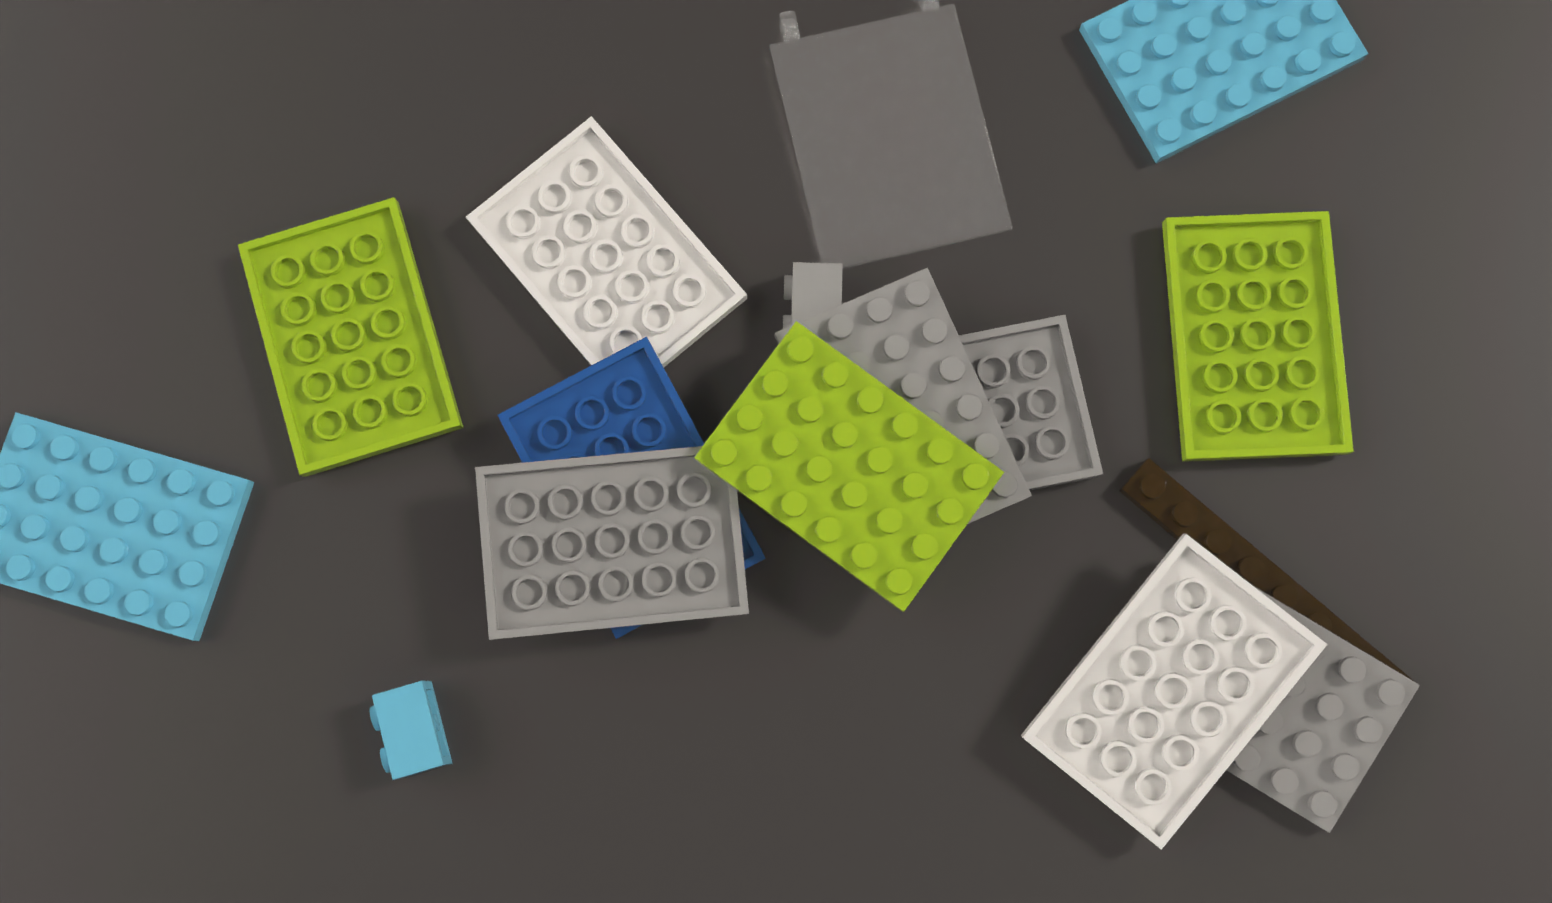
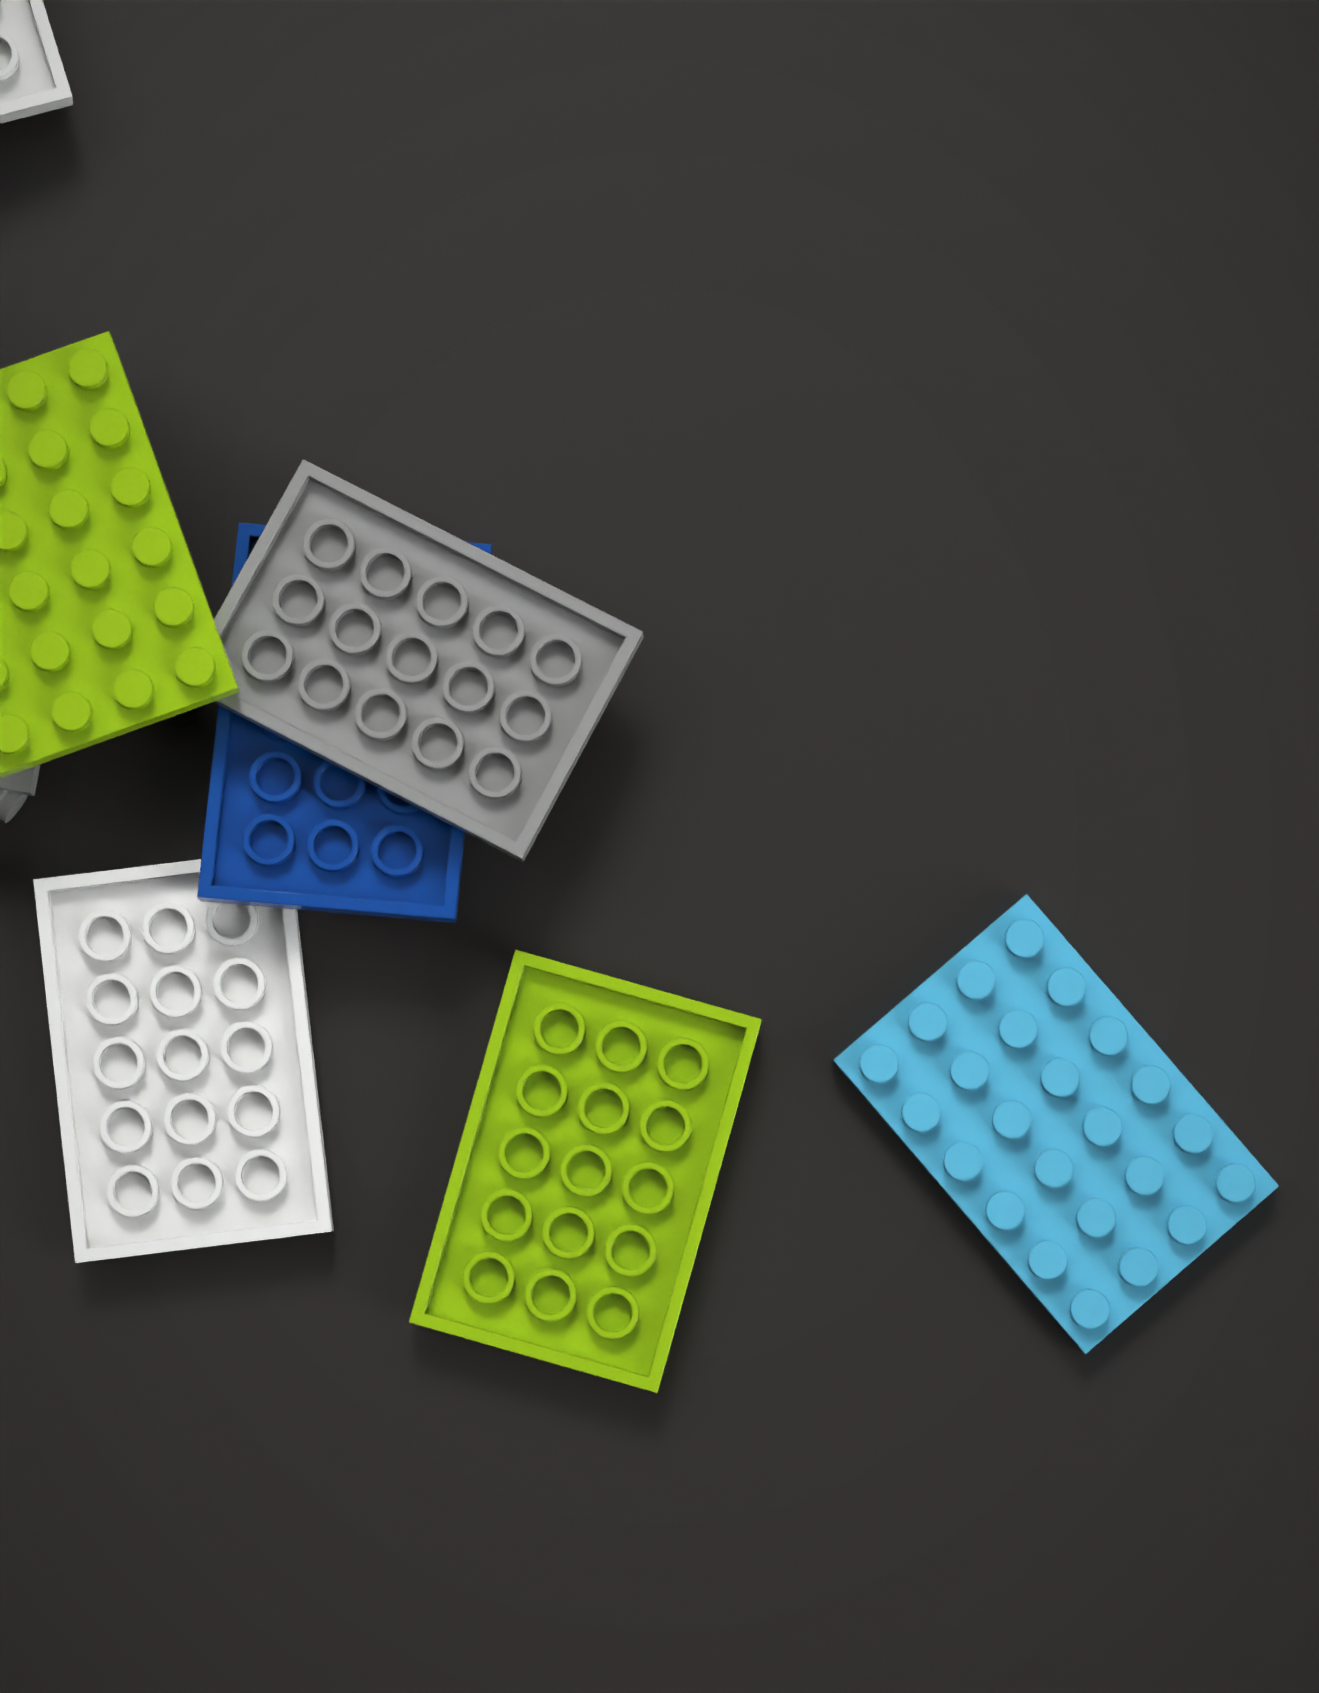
camera: 150 degrees left, 5 degrees up
(410, 730) = (818, 599): medium azure brick -> none

